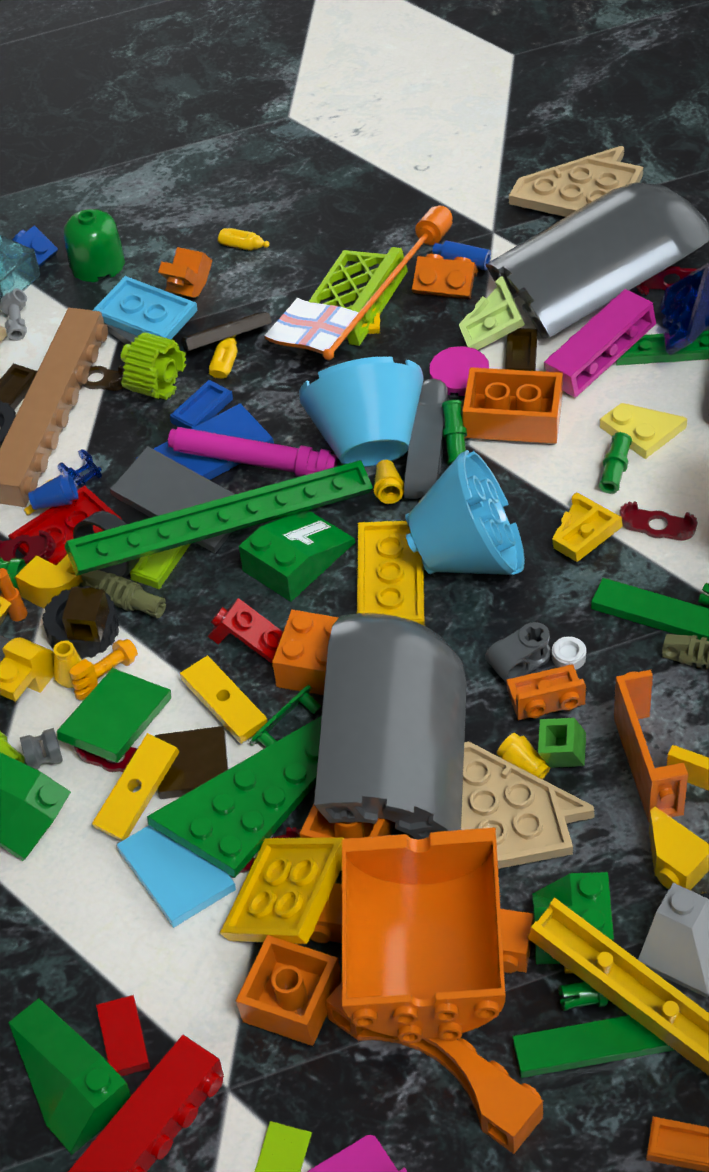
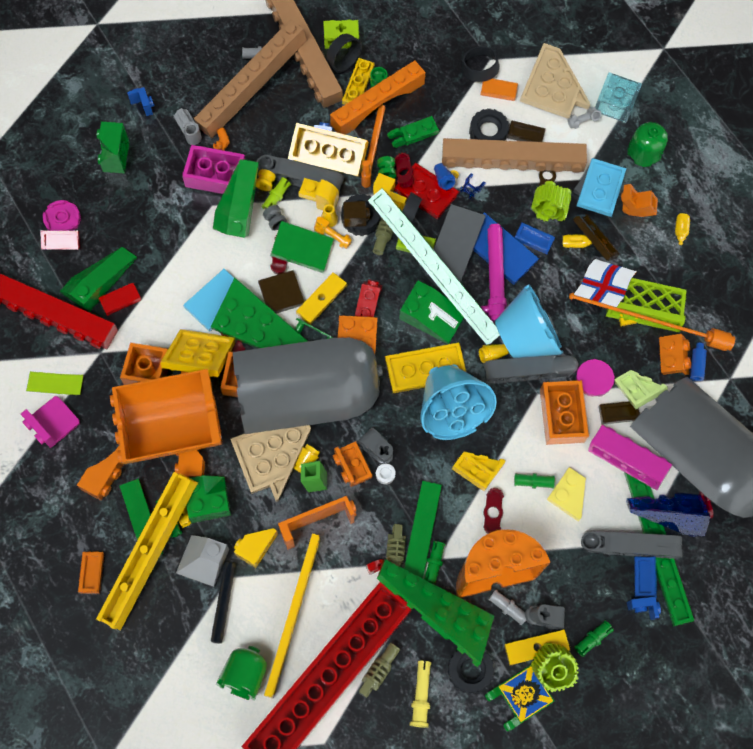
camera: 70 degrees right, 20 degrees up
(36, 240) = (643, 111): blue bracket -> none
(146, 770) = (246, 267): yellow tile -> none
(454, 430) = (534, 382): green pin -> none

